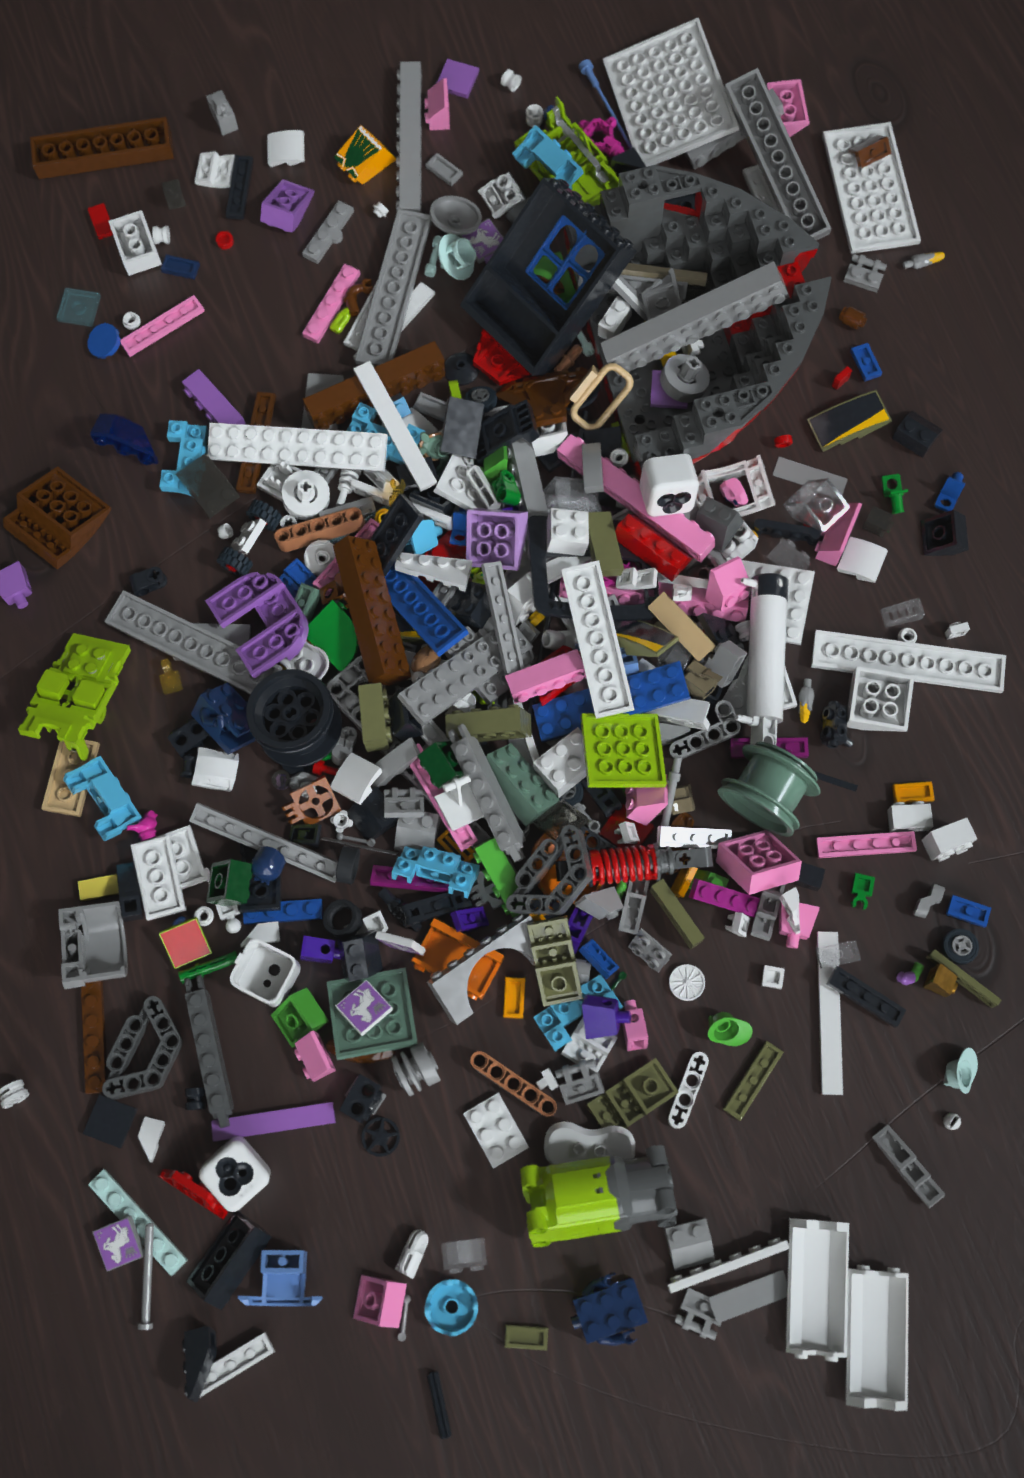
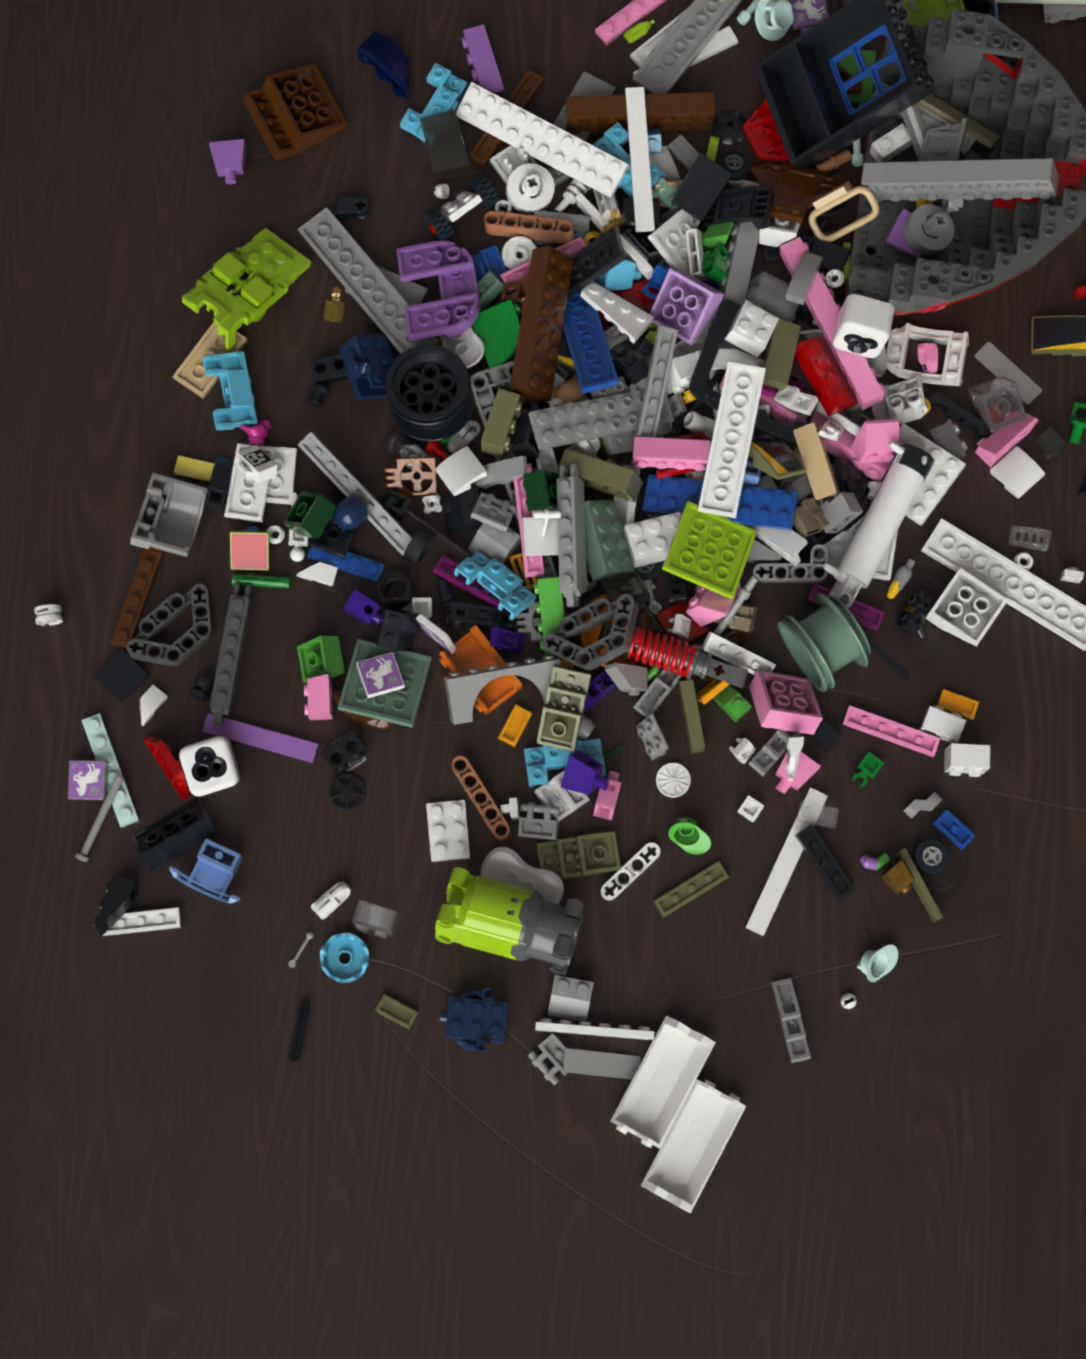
camera: 20 degrees right, 5 degrees up
(157, 857) = (257, 464): none -> white piece
(215, 769) = (340, 408): white slope -> none
(253, 969) = (298, 600): white piece -> none
(350, 296) = (656, 13): reddish brown piece -> none
(370, 842) = (449, 534): light grey hinge -> none
(379, 1301) = (286, 926): bright pink slope -> none
(413, 1070) = (402, 747): light grey wheel -> none
(598, 959) = (604, 725): blue plate -> none
(719, 521) = (897, 379): dark grey slope -> none
(724, 897) = (739, 720): magenta plate -> none
(783, 441) = (998, 328): red tile -> none

